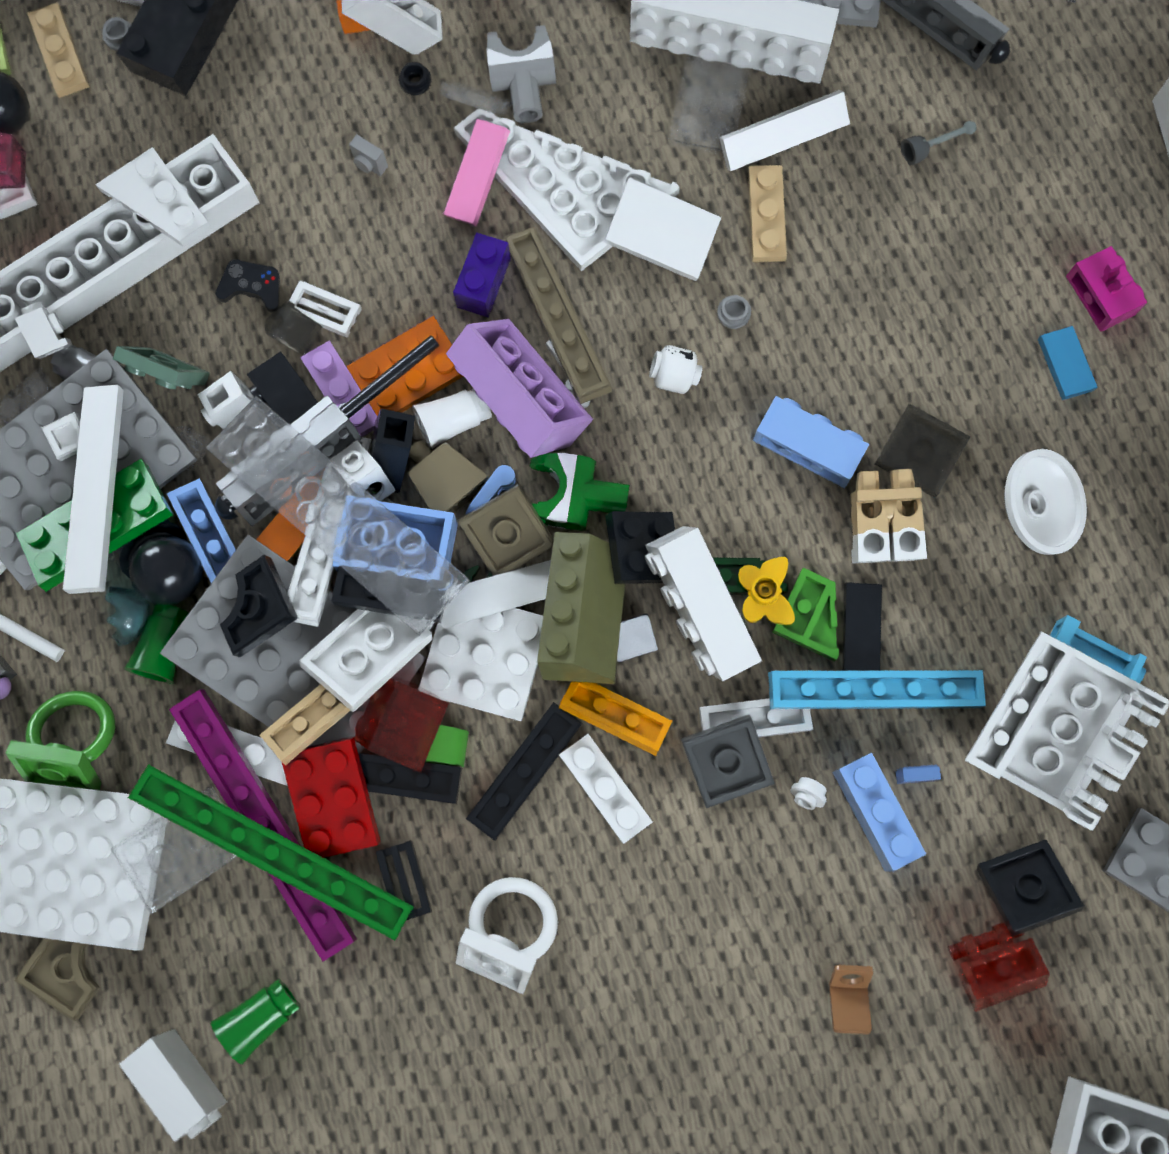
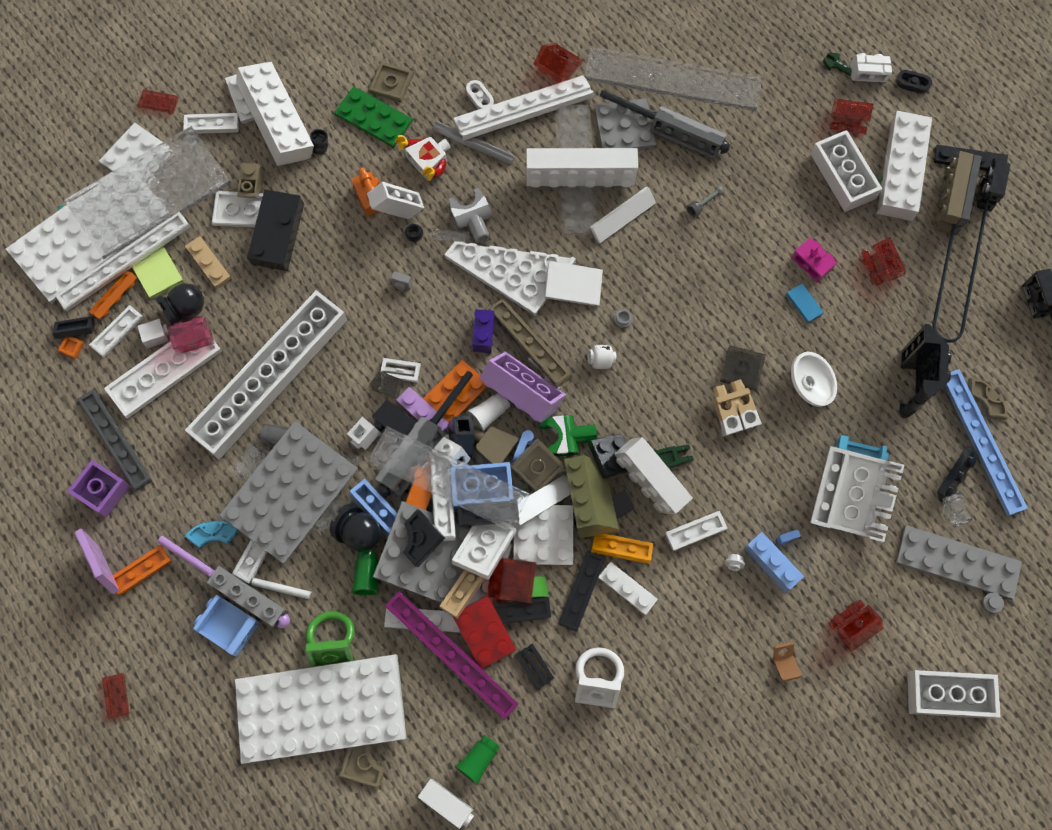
camera: 20 degrees left, 5 degrees down
(42, 330) = (255, 420): white brick -> none
(63, 435) = (288, 473): white tile -> none
(93, 490) = (314, 497): white tile -> none
(115, 31) = (240, 245): light grey plate -> none
(130, 614) = (343, 562): clear light blue hair -> none
(136, 509) = (316, 517): green plate -> none
(154, 194) = (294, 330): white wing -> none
(166, 369) = (330, 425): sand green plate -> none
(168, 859) = (412, 679): clear tile -> none
(250, 280) = (357, 364): black piece -> none
(270, 852) = (462, 667): green tile -> none
(476, 172) = (464, 276): bright pink tile -> none
(727, 761) = (688, 556): dark grey tile -> none
(765, 592) = (682, 462): yellow animal -> none
(767, 213) = (625, 261): tan plate -> none
(811, 441) = (684, 377): light blue brick -> none
(814, 613) = (709, 469): bright green wing -> none
(862, 627) = (739, 473): black tile -> none
(876, 689) = (754, 499): medium azure plate -> none
(1029, 887) = (860, 580): black plate -> none

